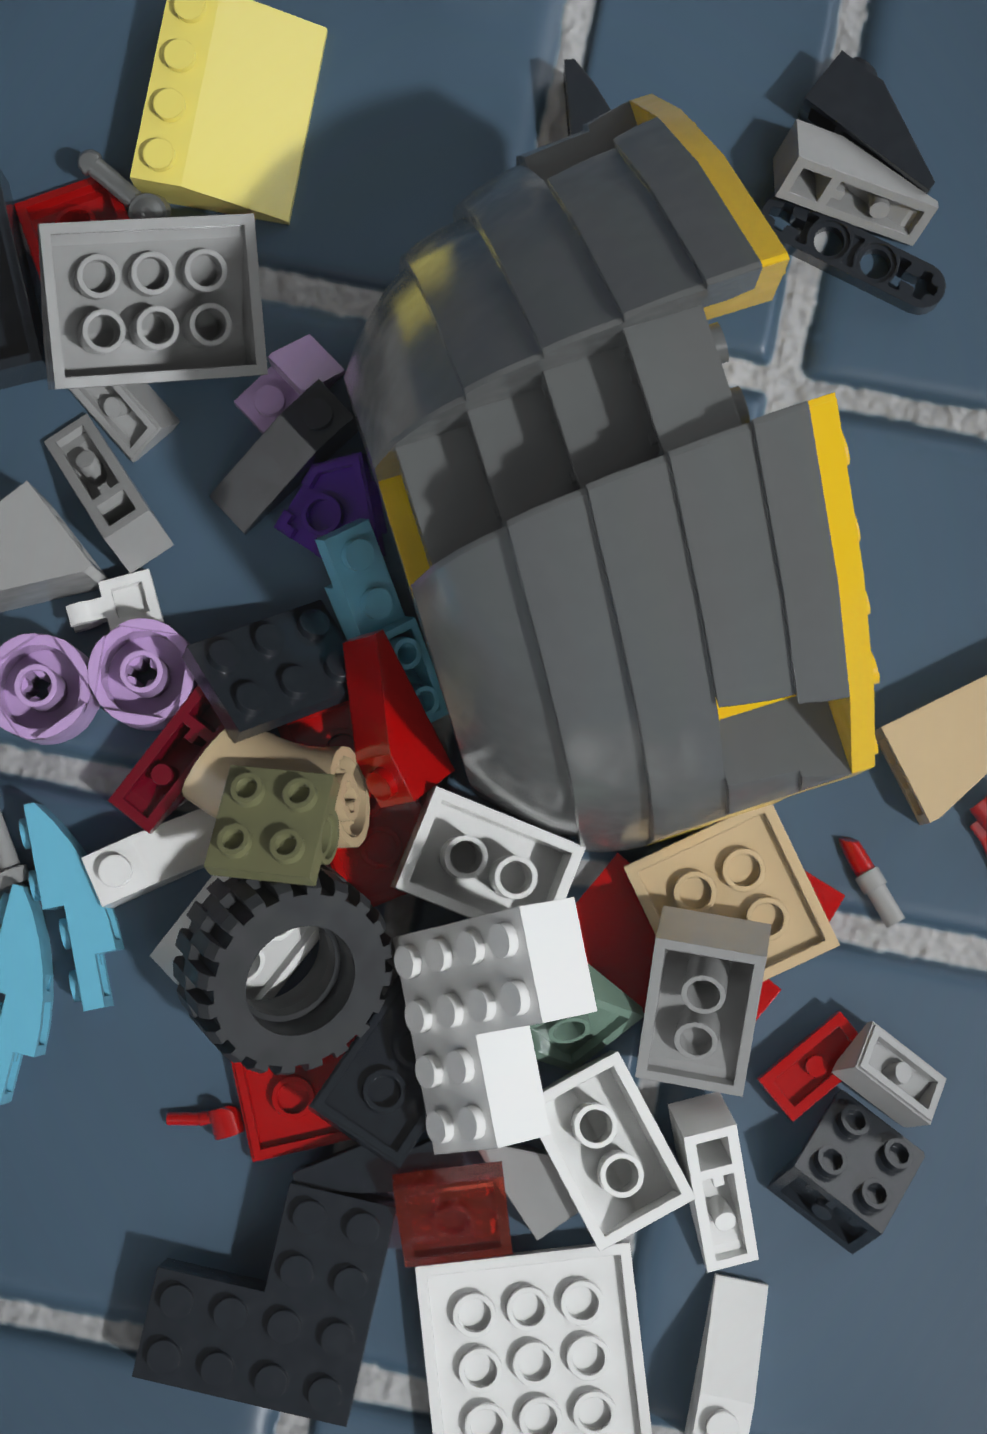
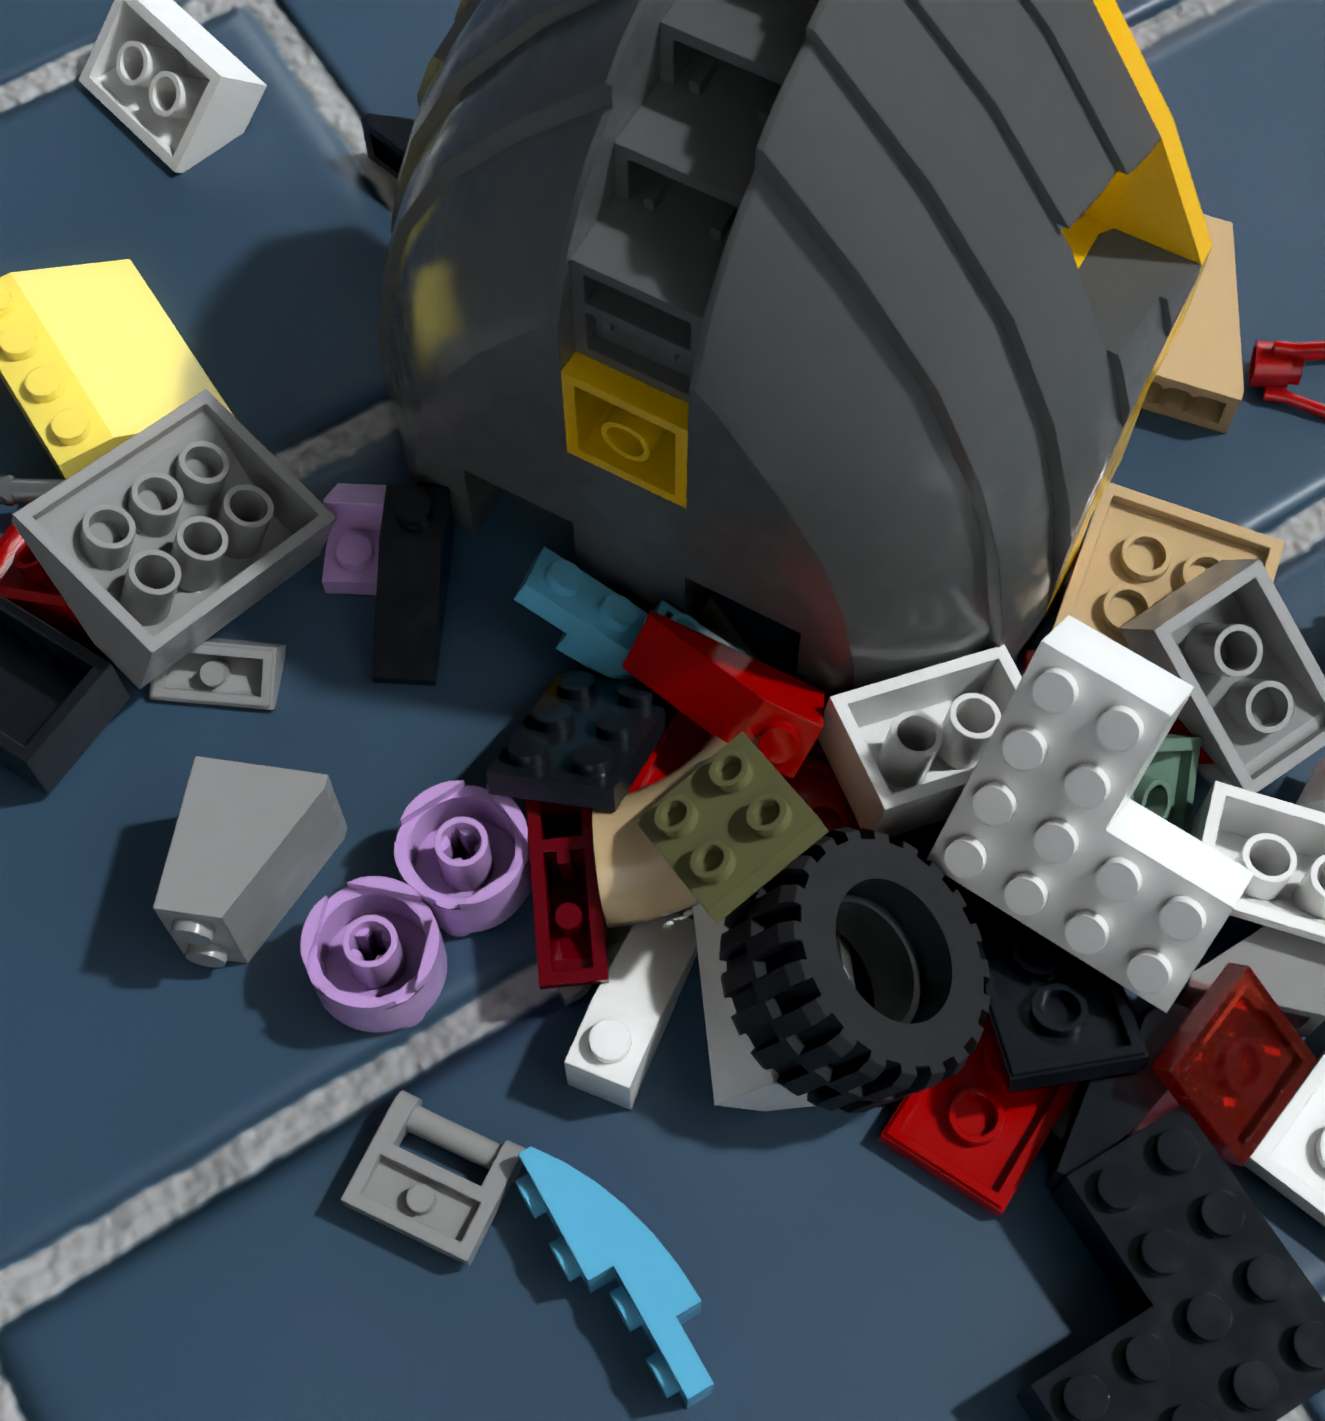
camera: 45 degrees left, 20 degrees down
(64, 883) = (570, 1111): medium azure slope -> none
(108, 494) = (282, 733): light grey slope -> none
(121, 600) = (372, 828): white plate -> none
(224, 1120) = (936, 1201): red hand -> none
(331, 497) = (482, 588): dark purple plate -> none
(871, 881) = (1242, 499): light grey piece -> none

